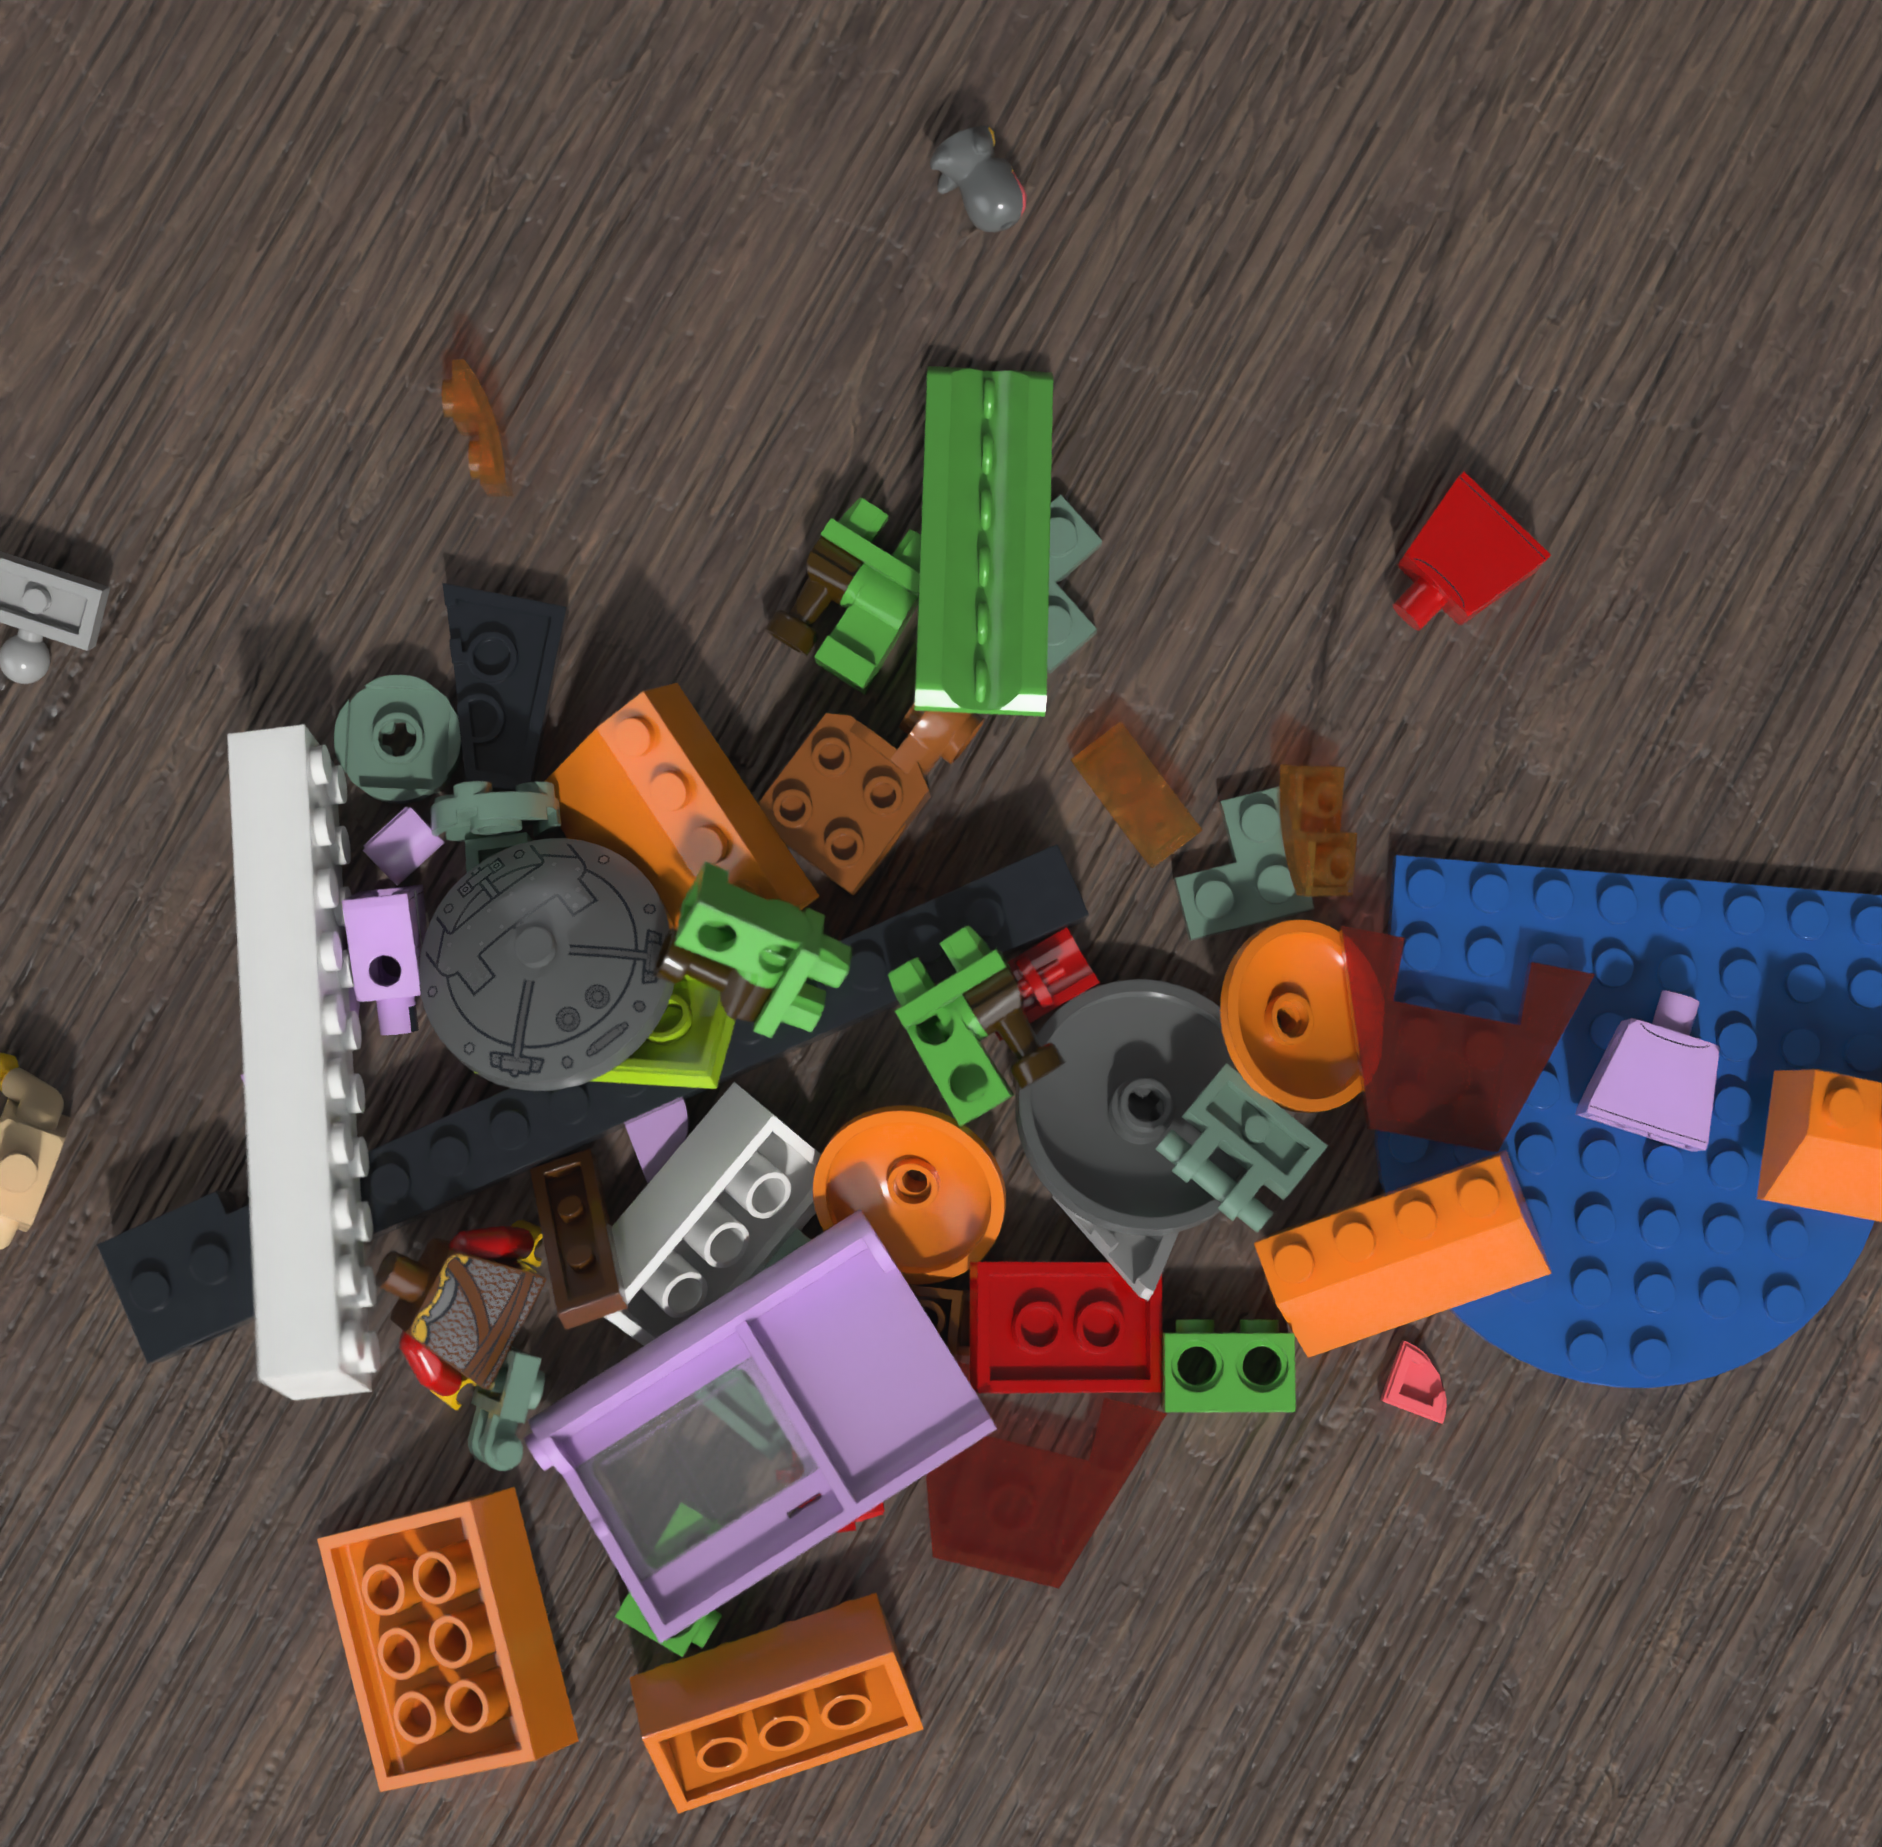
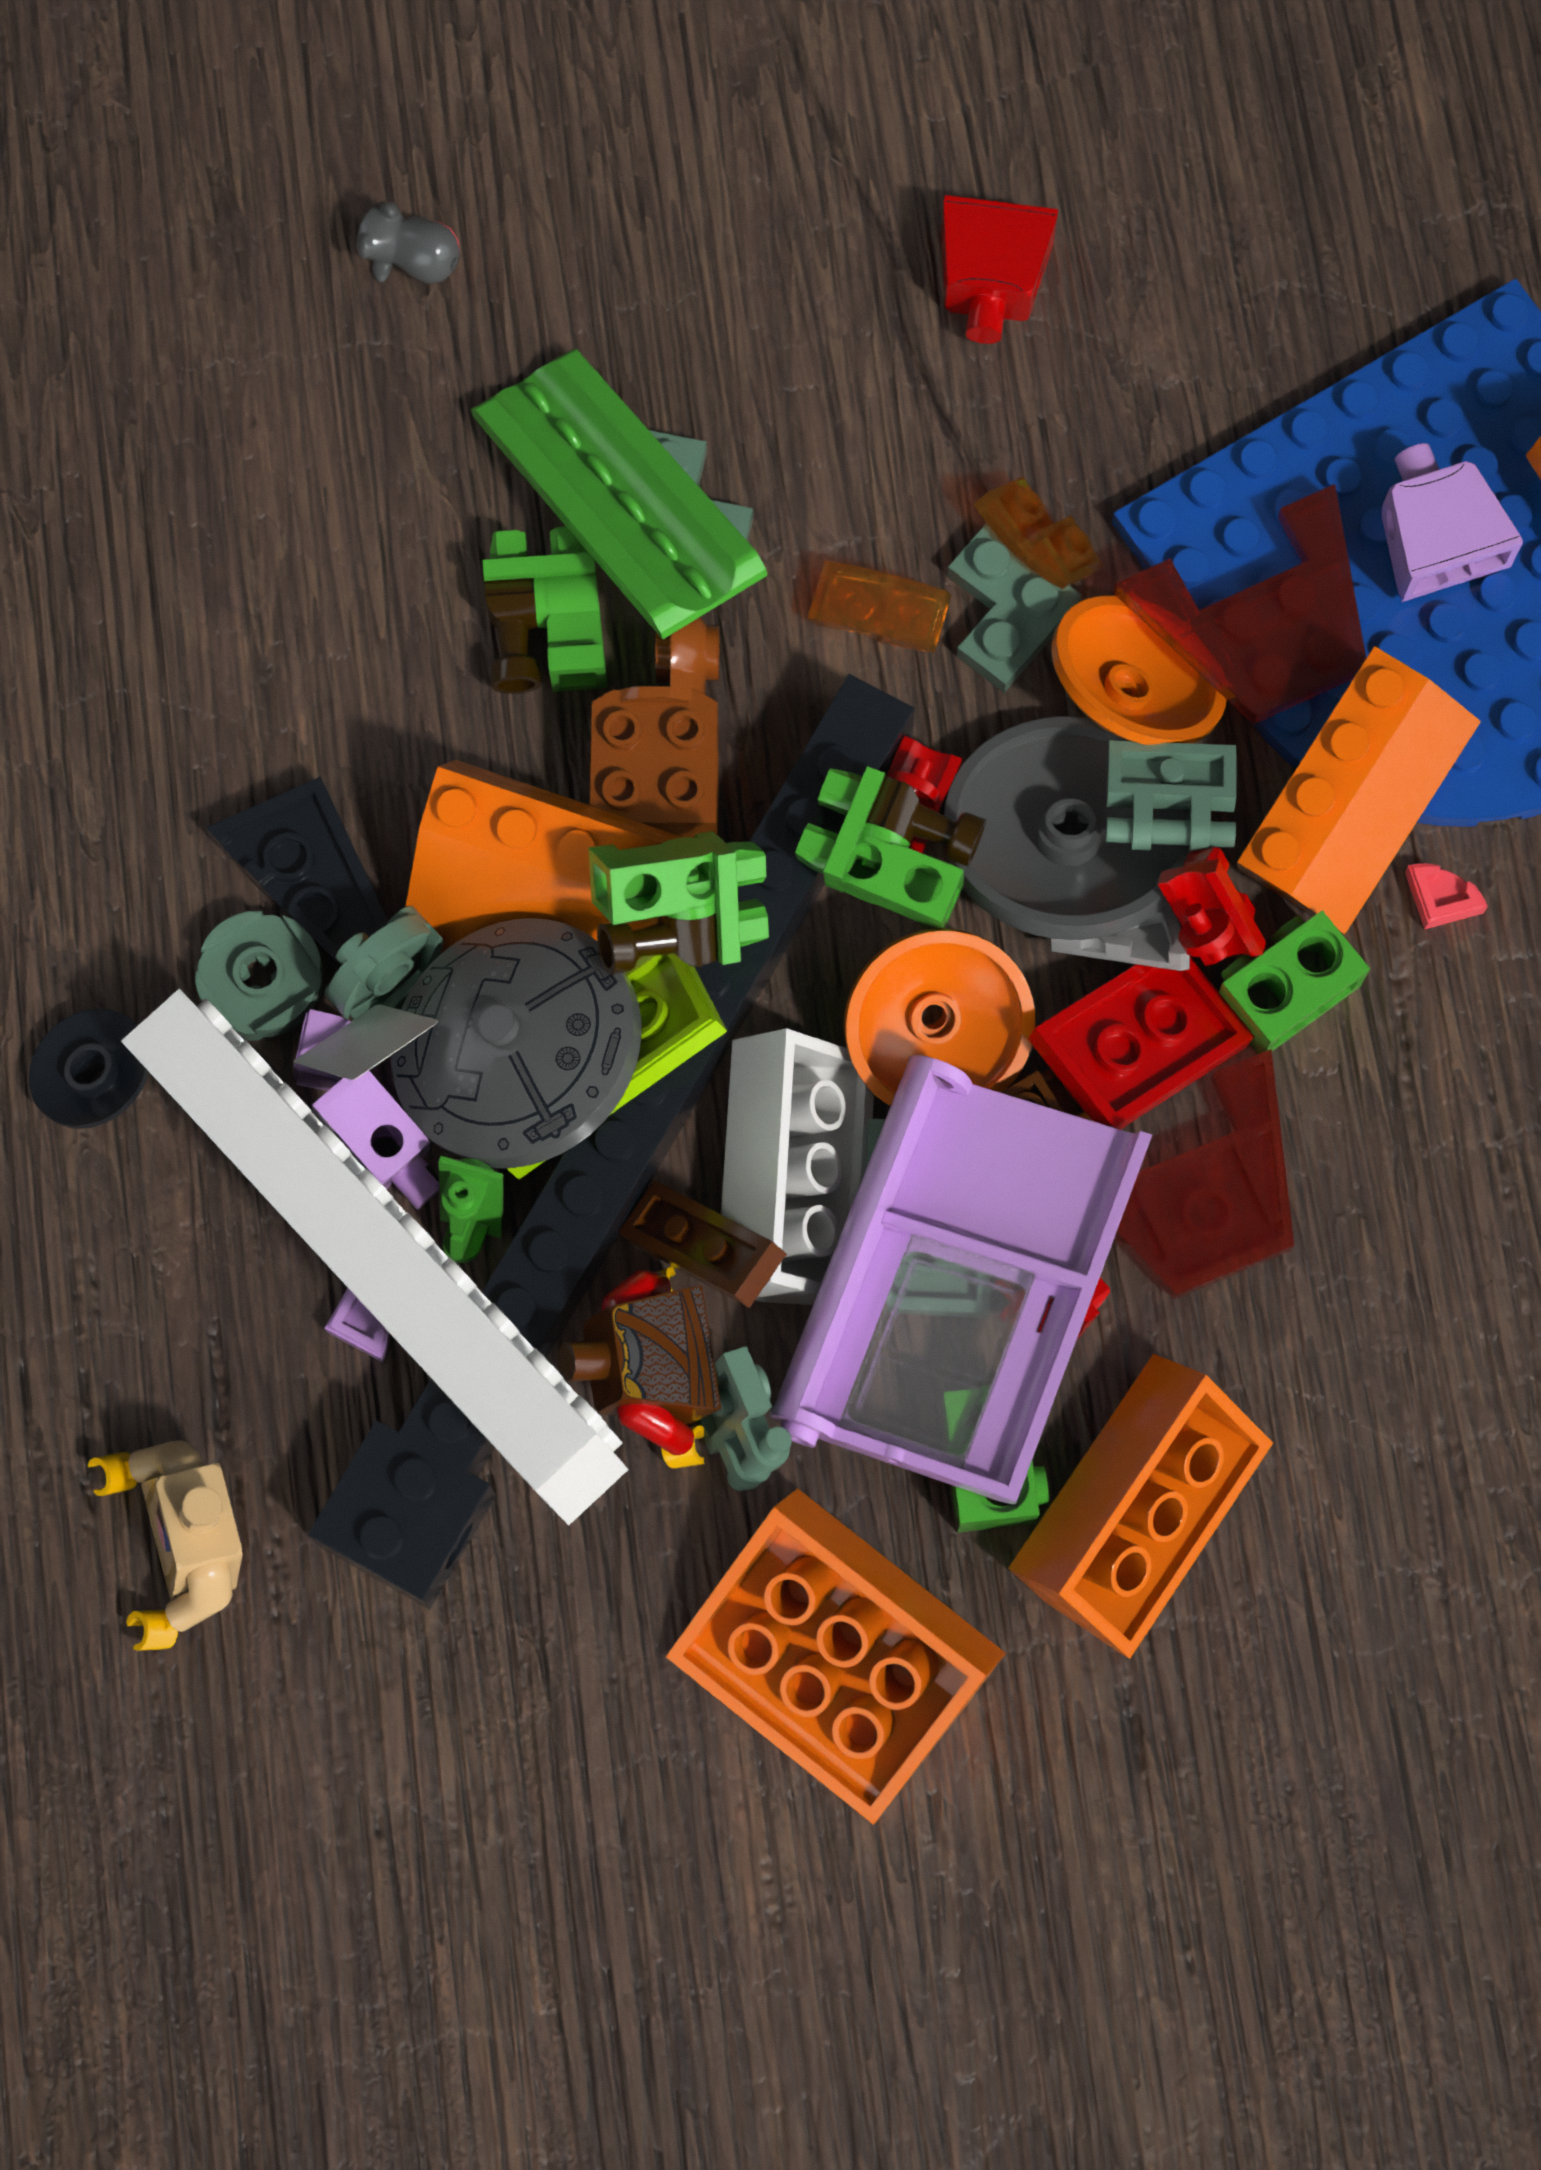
camera: 35 degrees left, 10 degrees down
(187, 706) = (71, 1058): none -> black dish
(416, 1068) = (470, 1204): none -> bright green hinge
(428, 874) = (365, 1041): none -> white sticker
(474, 416) = (143, 687): clear orange slope -> none
(659, 1136) = (703, 1133): lavender tile -> none
(1197, 1268) = (1212, 912): none -> red hips

